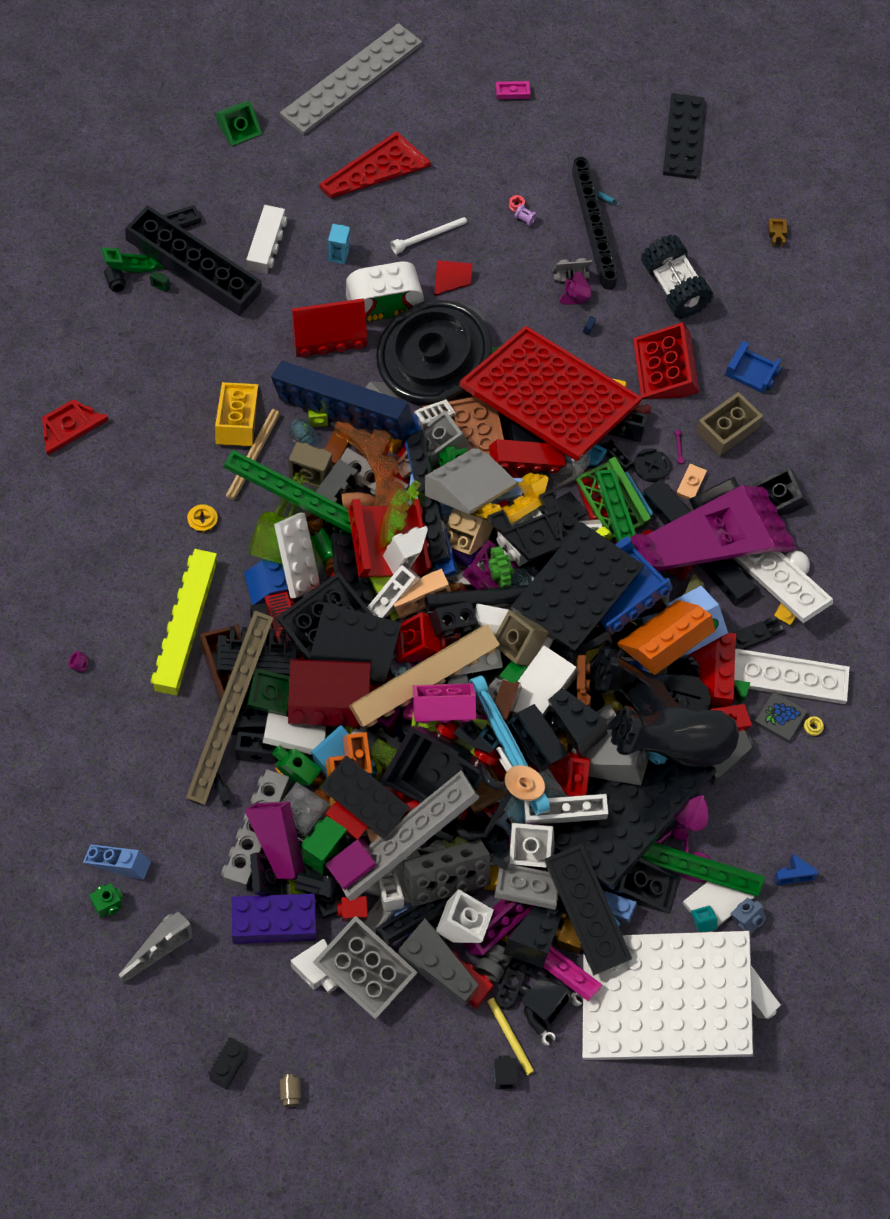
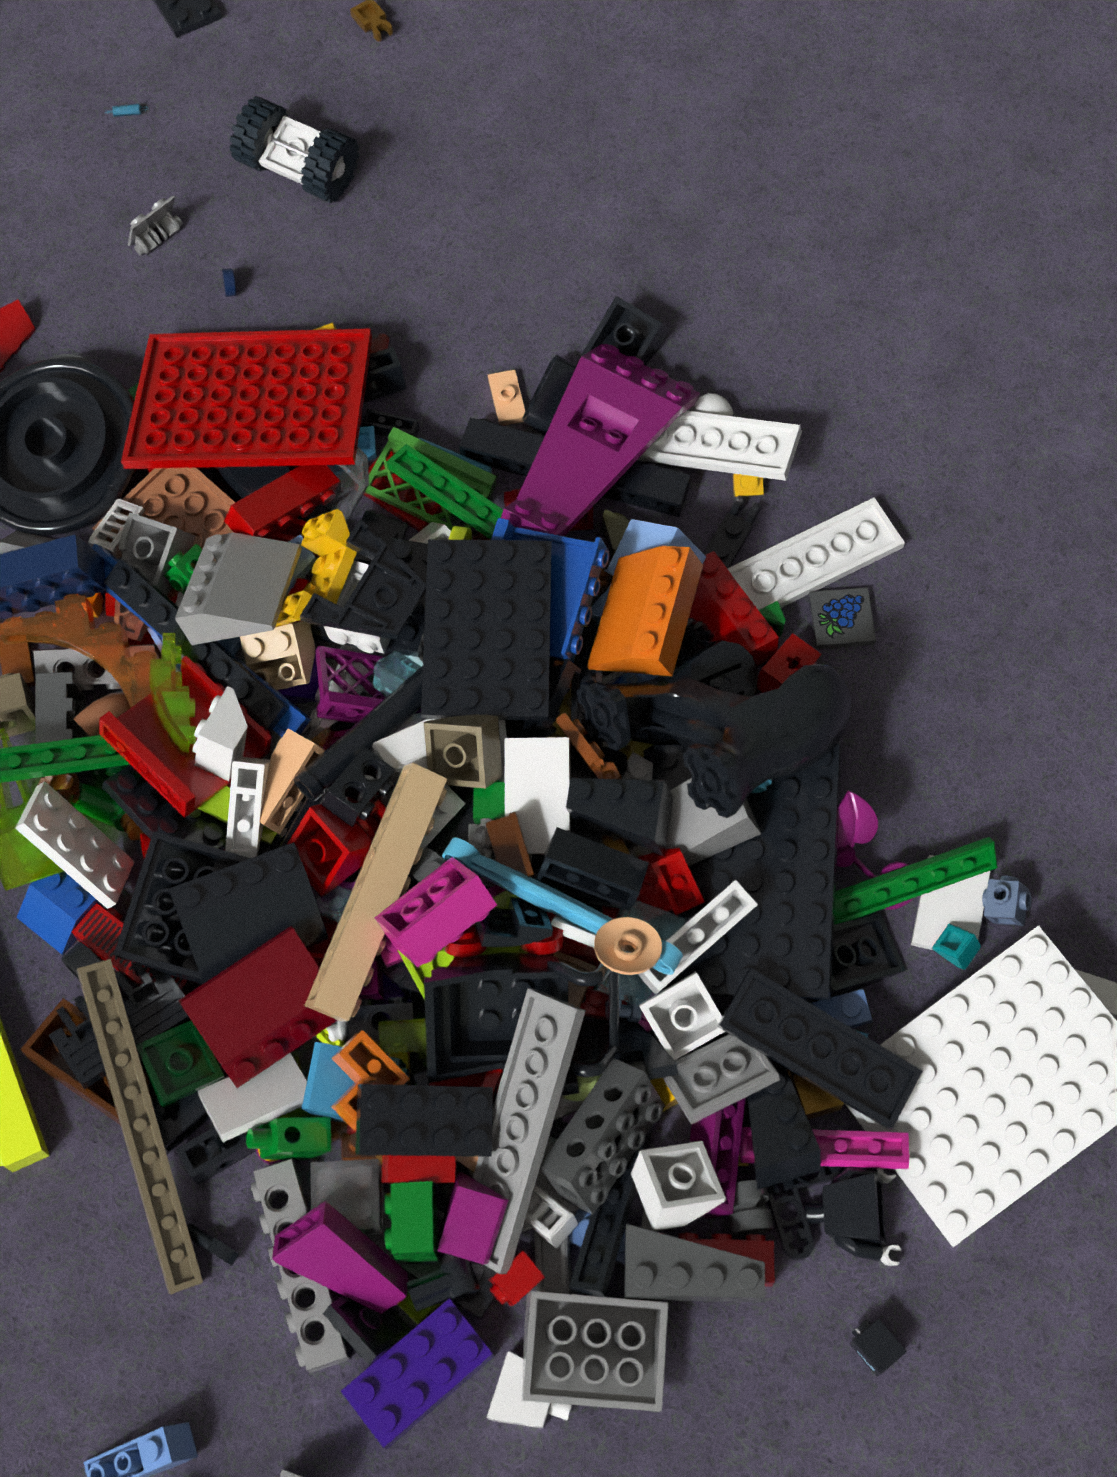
camera: 30 degrees left, 5 degrees up
(500, 567) = (364, 672): bright green gear -> none
(510, 1036) = (842, 1289): light yellow bar -> none
(513, 200) = (15, 180): coral bush -> none
(525, 215) = (41, 194): lavender bush -> none
(577, 290) = (180, 248): magenta brick -> none
(594, 223) = (138, 149): black beam -> none
(651, 465) = (441, 409): black tile -> none
(666, 363) = (362, 268): red slope -> none
(680, 460) = (471, 377): magenta hinge -> none
(729, 424) = (498, 292): dark tan brick -> none
(752, 369) = (473, 207): blue panel -> none
(799, 872) = (1016, 799): blue slope -> none
(816, 721) = (892, 594): light yellow plate -> none

